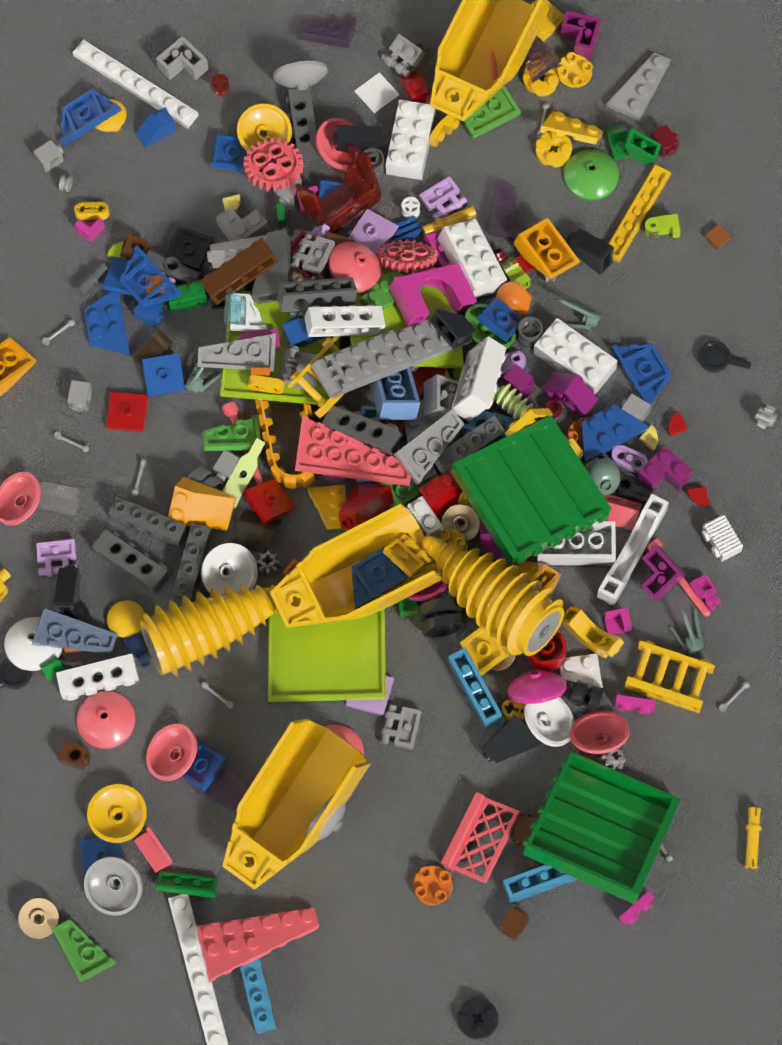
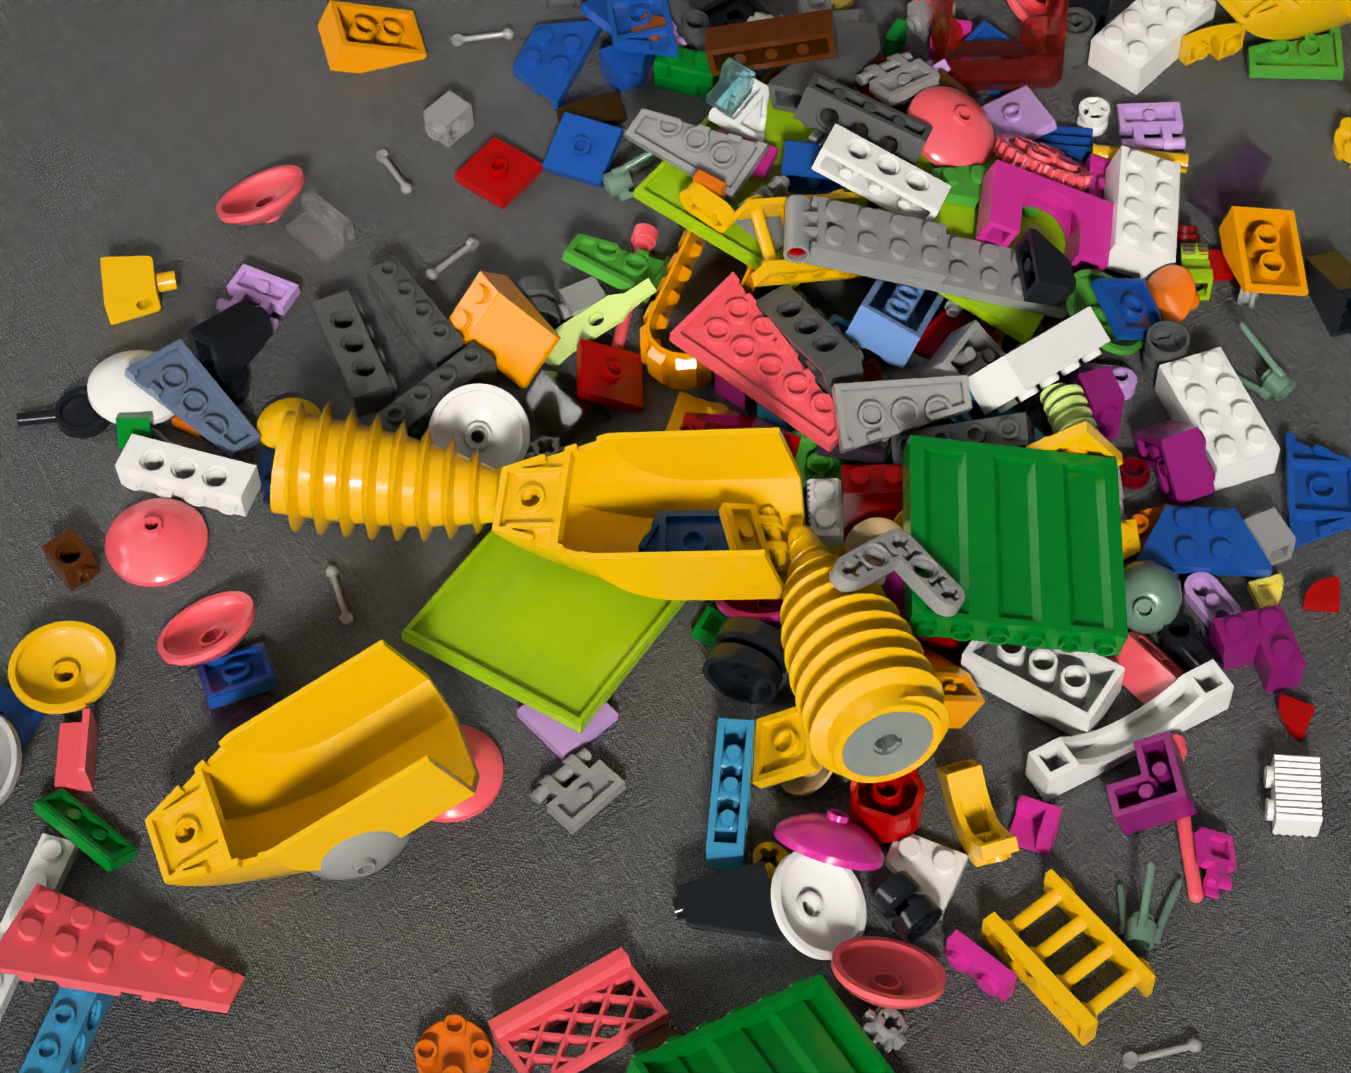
camera: 30 degrees right, 15 degrees down
(490, 537) = (894, 552): none -> light grey beam

